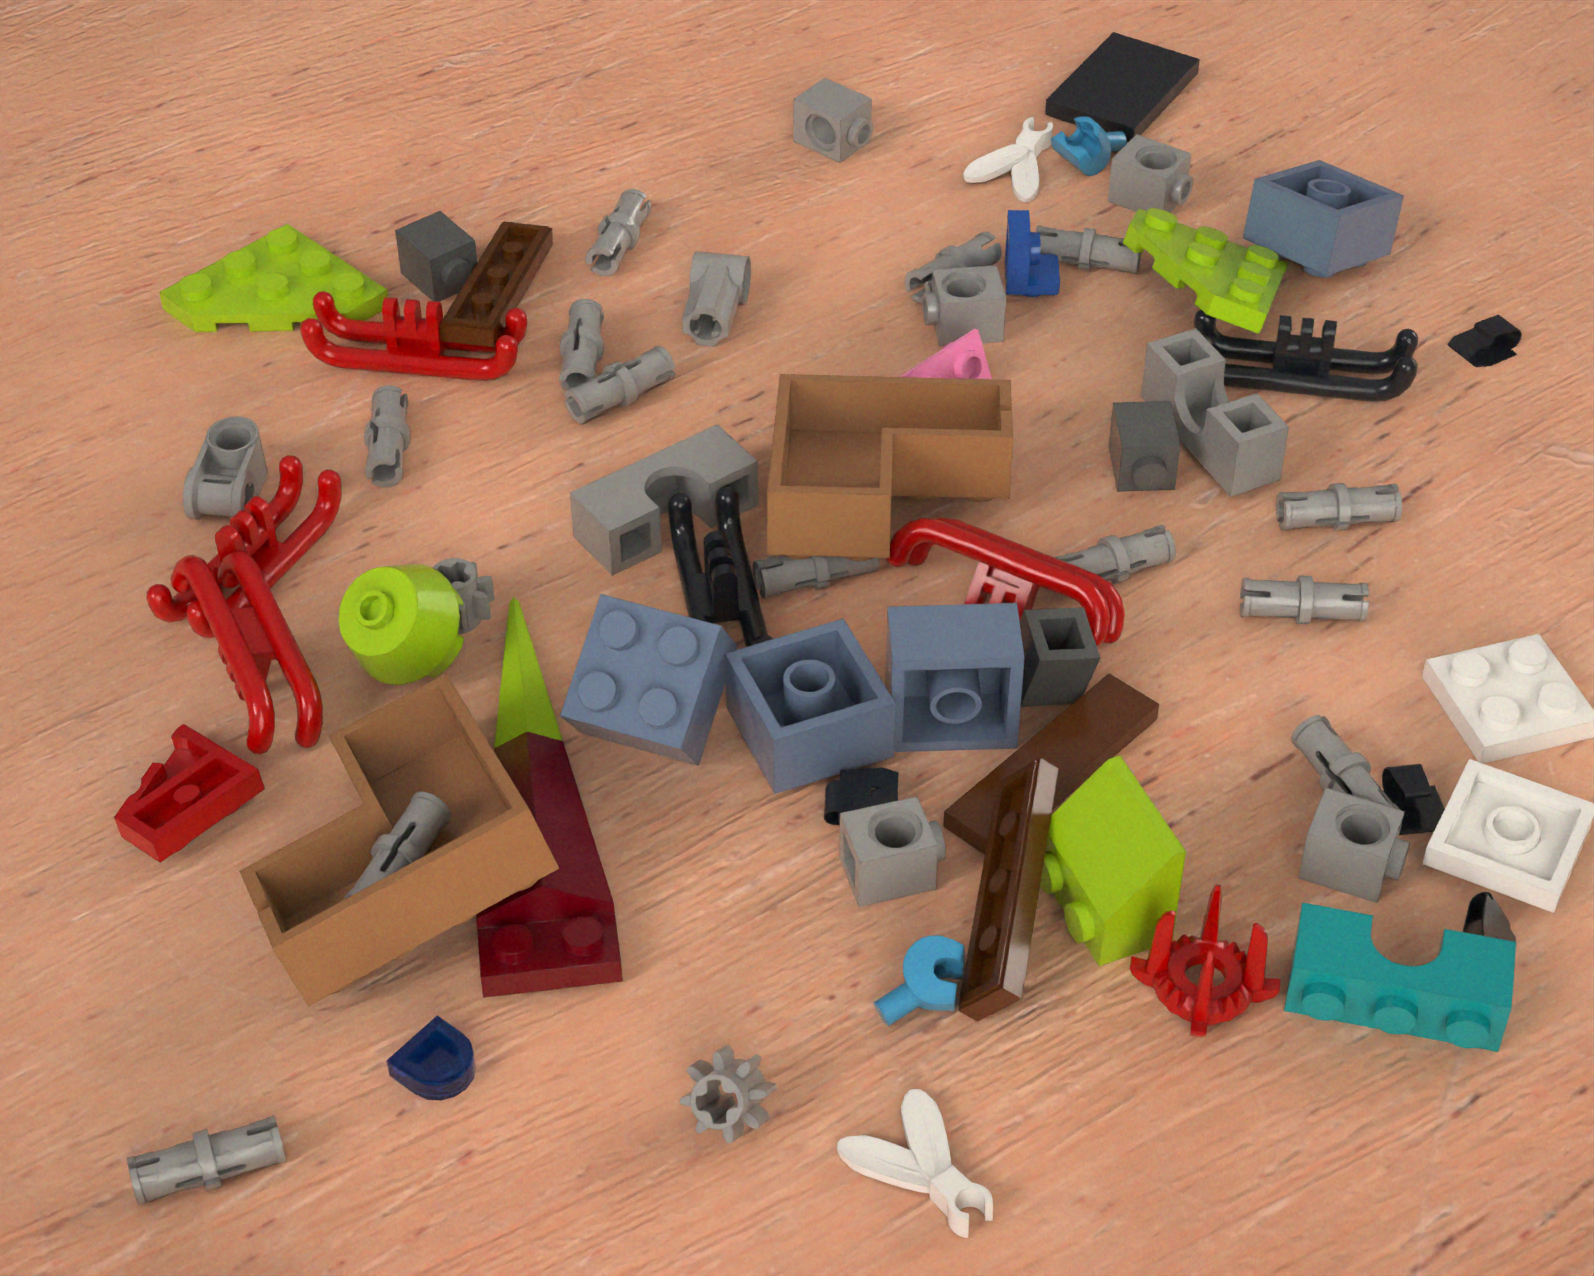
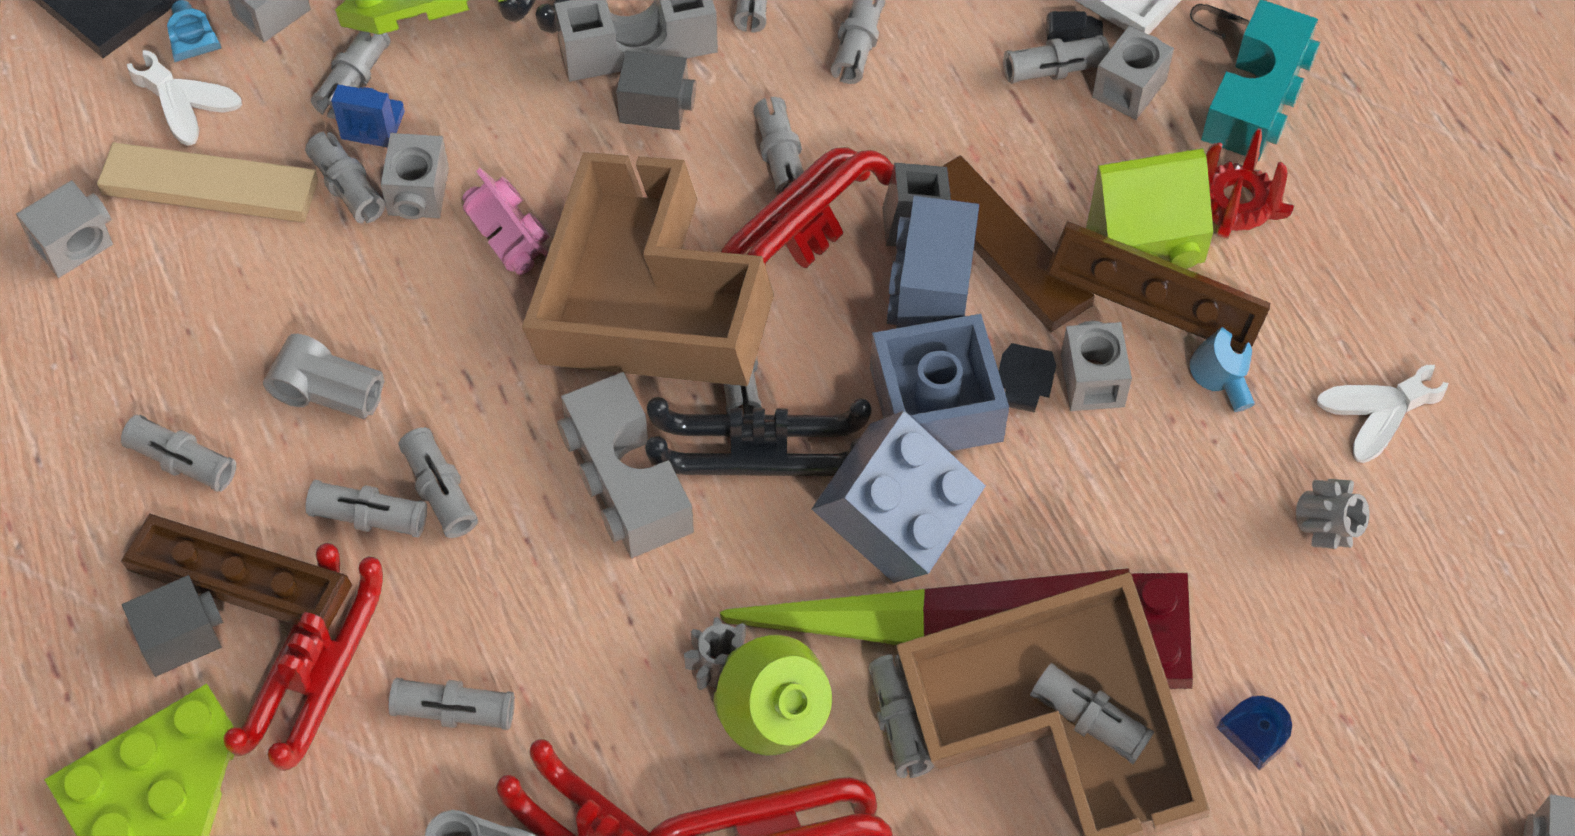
camera: 80 degrees left, 15 degrees up
(921, 194) = (208, 182): none -> tan tile

